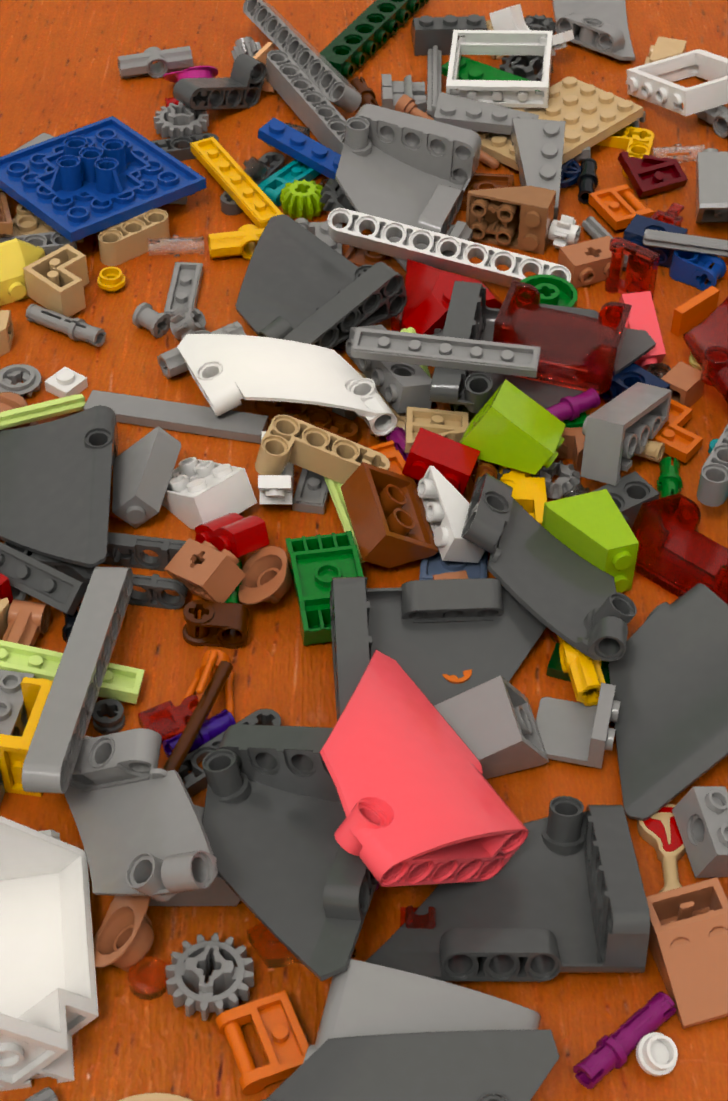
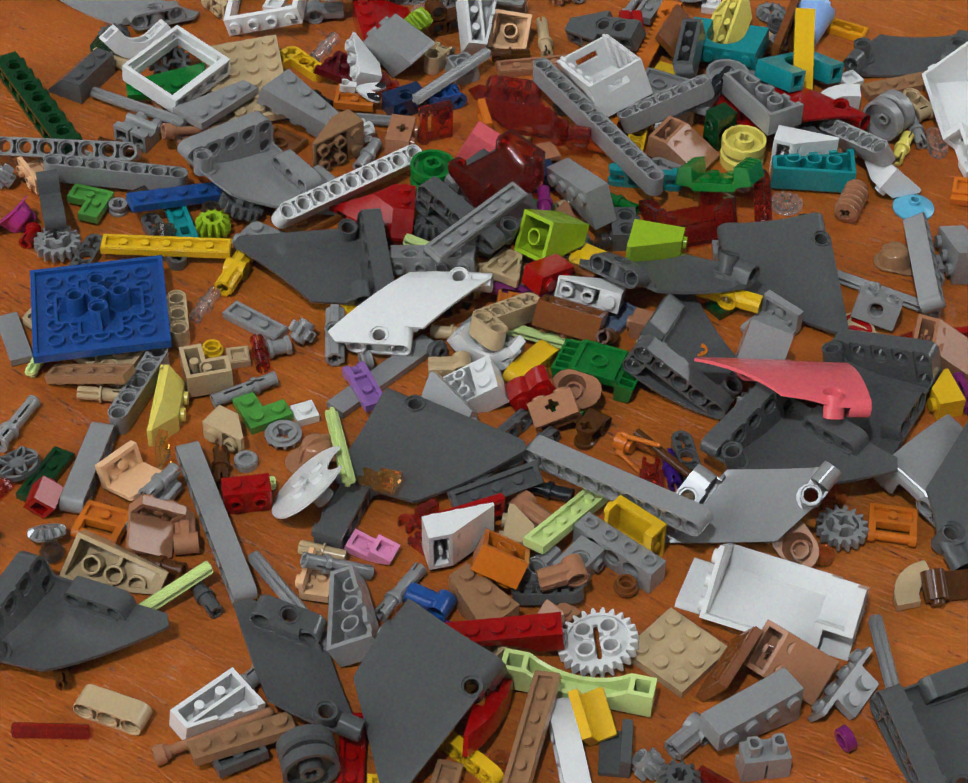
camera: 60 degrees left, 0 degrees up
(41, 352) = (257, 416): none -> bright green plate
(118, 302) = (239, 357): none -> tan tile
(124, 314) = (259, 353): none -> clear red pin
(135, 397) = (363, 385): none -> medium lavender plate
(183, 390) = (367, 358): none -> light grey bush
(223, 450) = (447, 364): none -> tan piece
(250, 432) = (437, 349): none -> dark grey plate
(267, 108) = (93, 201): none -> bright green plate
(292, 521) = (538, 354): none -> yellow beam
(386, 566) = (607, 336): none -> reddish brown pin
(544, 252) = (368, 153): none -> light grey pin
(601, 1000) = (946, 397): none -> yellow slope
(631, 203) = (366, 90): none -> white piece
(670, 184) = (362, 63): none -> white slope

